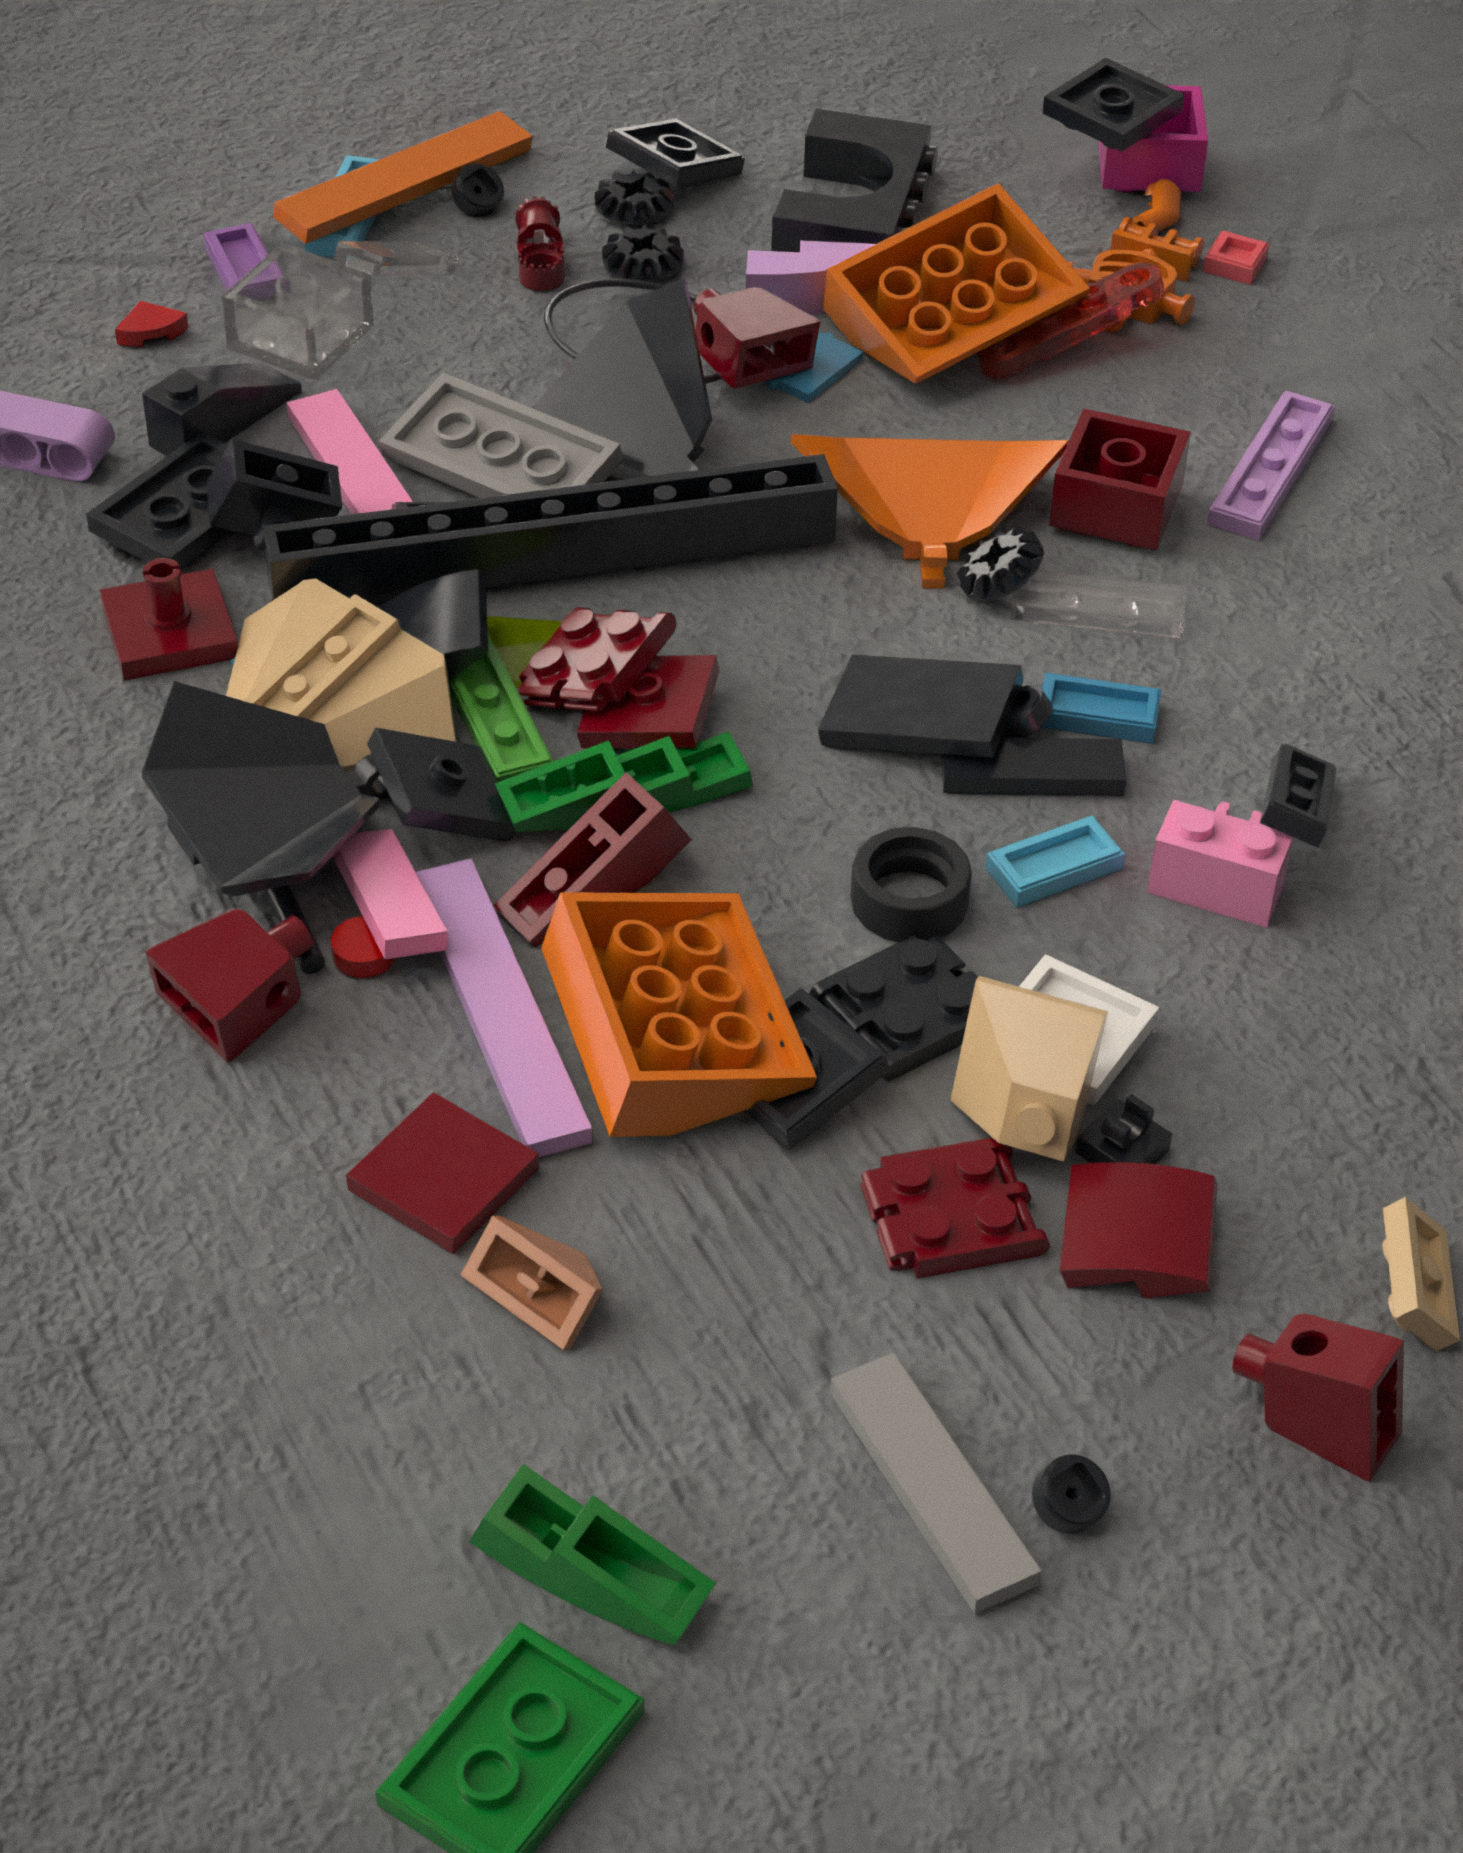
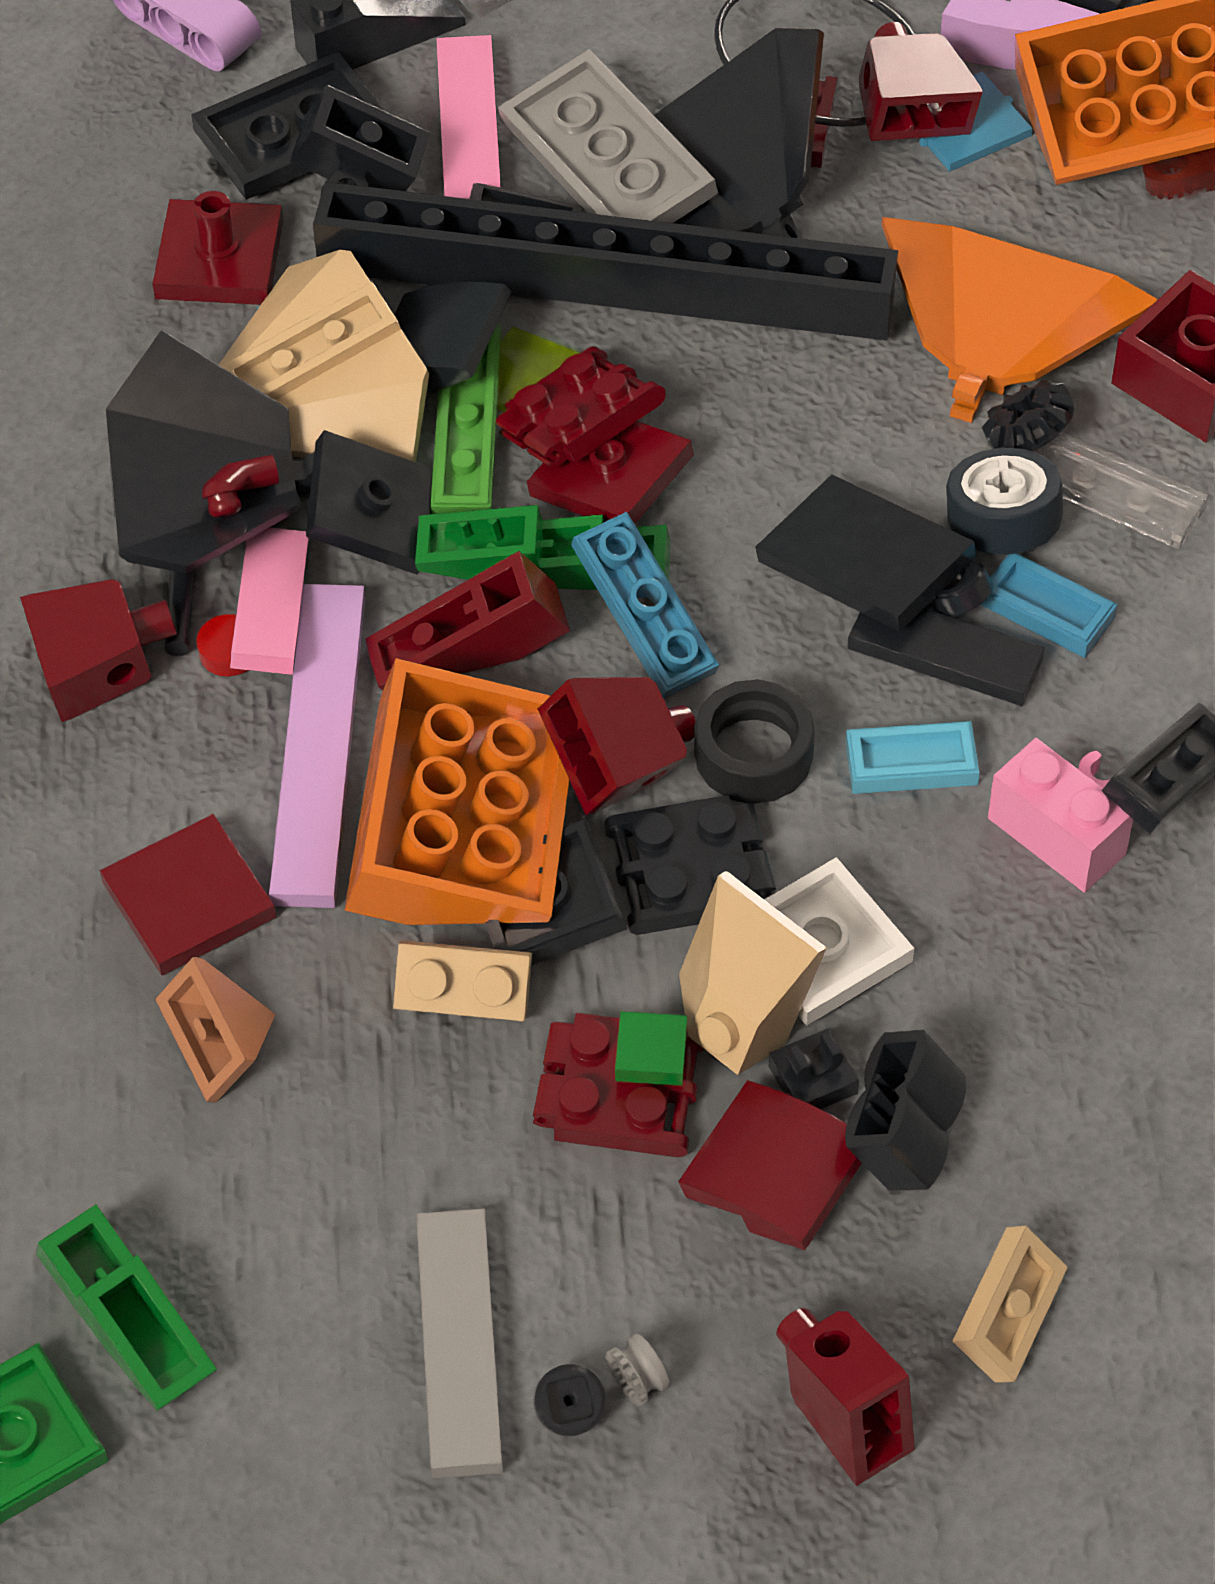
camera: 25 degrees right, 10 degrees up
(304, 796) = (238, 477): none -> dark red arm
(749, 799) = (659, 634): none -> dark azure tile
(759, 1161) = (462, 980): none -> tan plate
(789, 908) = (615, 736): none -> dark red torso
(978, 1158) = (651, 1048): none -> green tile
(1022, 628) = (1005, 500): none -> black wheel
(1121, 1443) = (638, 1368): none -> light grey bush
(1238, 1138) = (906, 1110): none -> black brick

